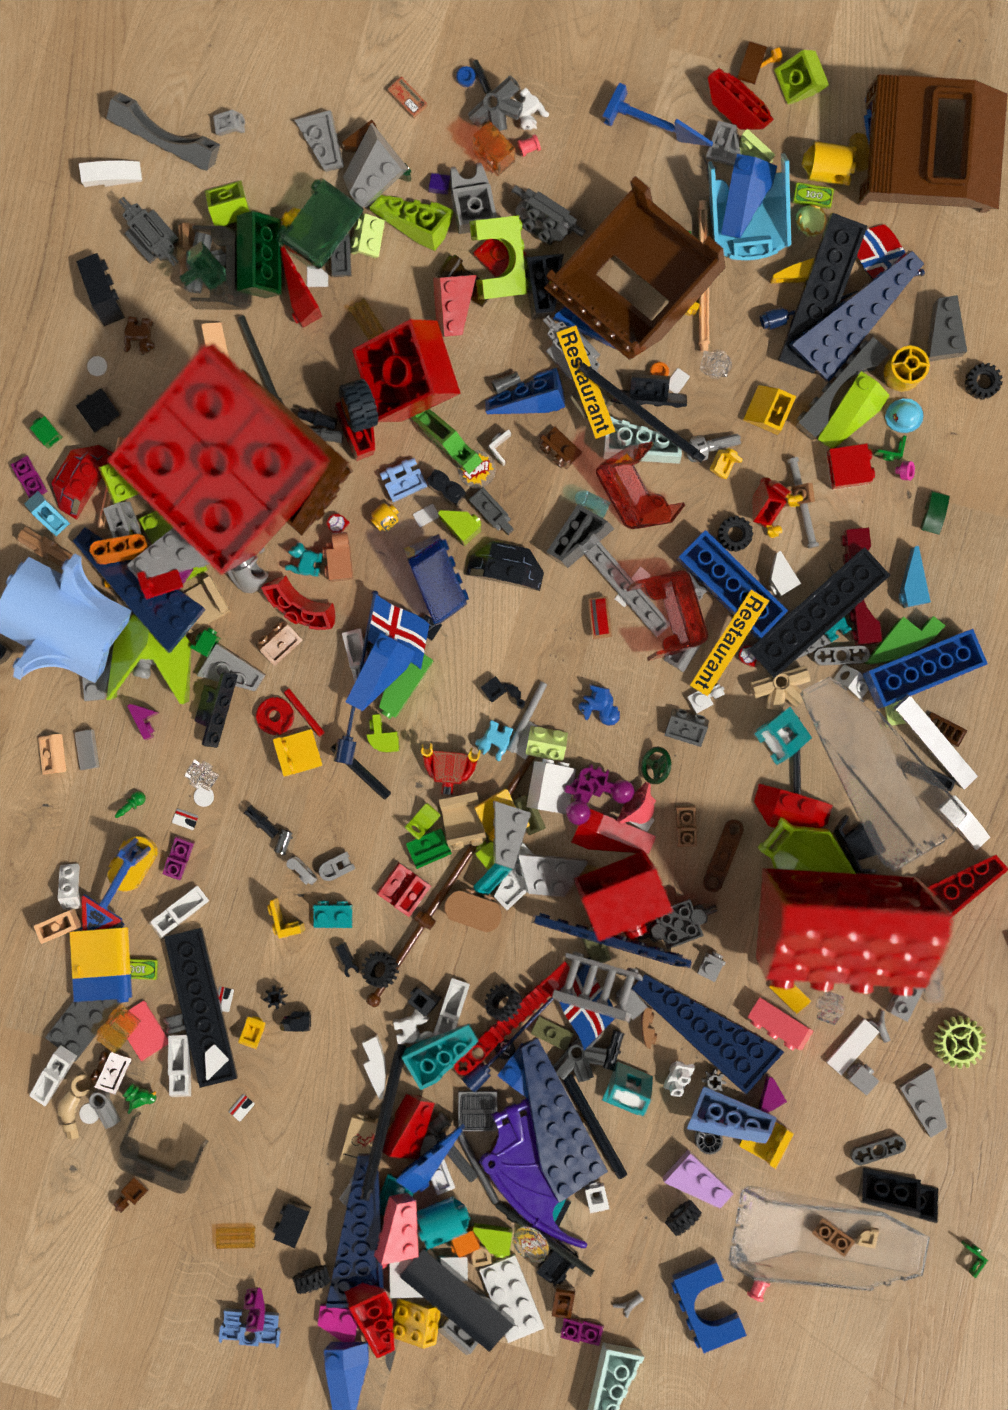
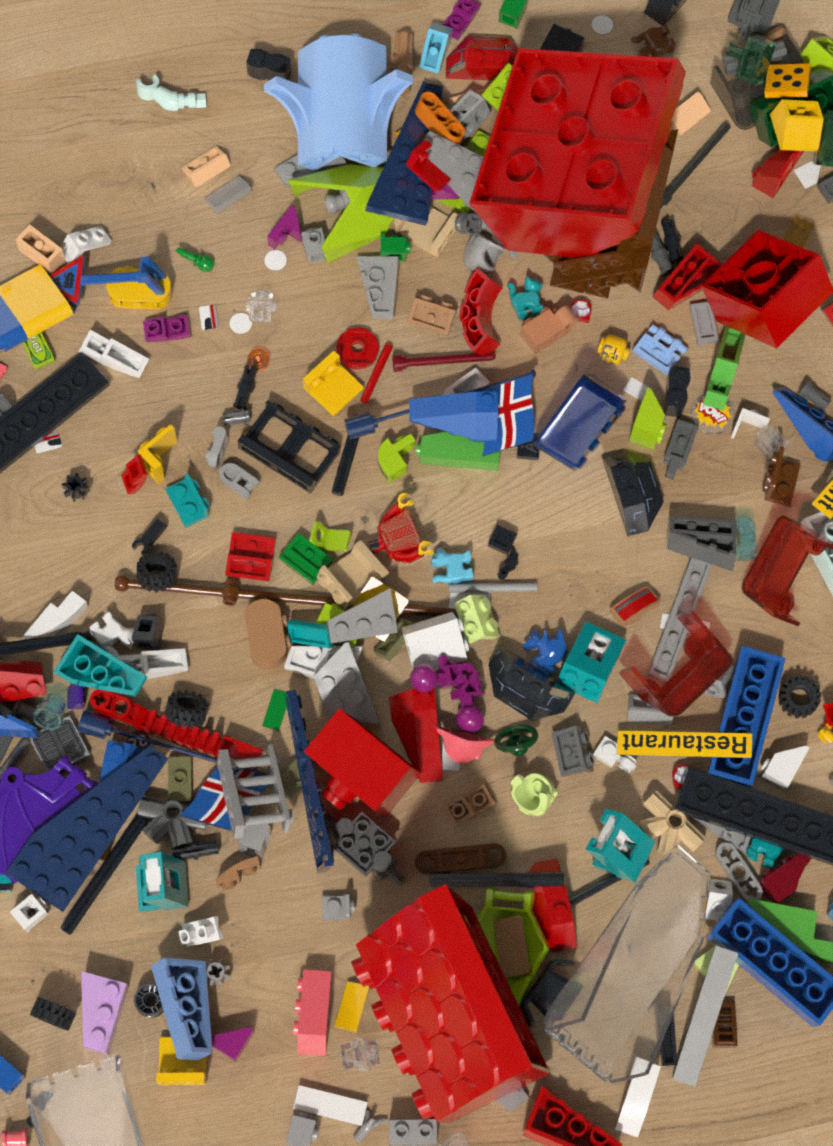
camera: 60 degrees right, 15 degrees down
(164, 741) = (275, 260): none -> white sticker
(168, 704) = (312, 241): none -> light grey brick
(214, 708) = (334, 287): black bracket -> none
(216, 578) = (468, 223): none -> dark grey wheel
(237, 250) = (787, 80): none -> light orange tile
(243, 799) = (258, 359): none -> clear orange tile
(252, 1032) = (28, 483): yellow bracket -> none
(280, 265) = (797, 125): none -> yellow slope
(292, 948) = (135, 475): none -> red slope
(297, 1021) = (61, 520): black rock -> none
(306, 688) = (401, 362): none -> dark red piece
(336, 823) = (282, 459): none -> black window
(358, 405) = (707, 258): black wheel -> none
(399, 433) = (703, 323): none -> light grey tile
(447, 1080) = (76, 697): none -> dark purple slope
(449, 1106) = (50, 712): none -> clear light blue piece
(525, 438) = (769, 441): none -> clear brick
(535, 932) = (275, 710): none -> green sticker
(619, 735) = (526, 687): none -> black wedge
(635, 686) = (590, 674): none -> teal brick
(705, 775) = (533, 793): none -> yellowish green helmet
(725, 1044) = (261, 967): dark blue wing -> none
(756, 839) = (498, 879): none -> black axle
(810, 854) = (512, 946): none -> medium nougat sticker

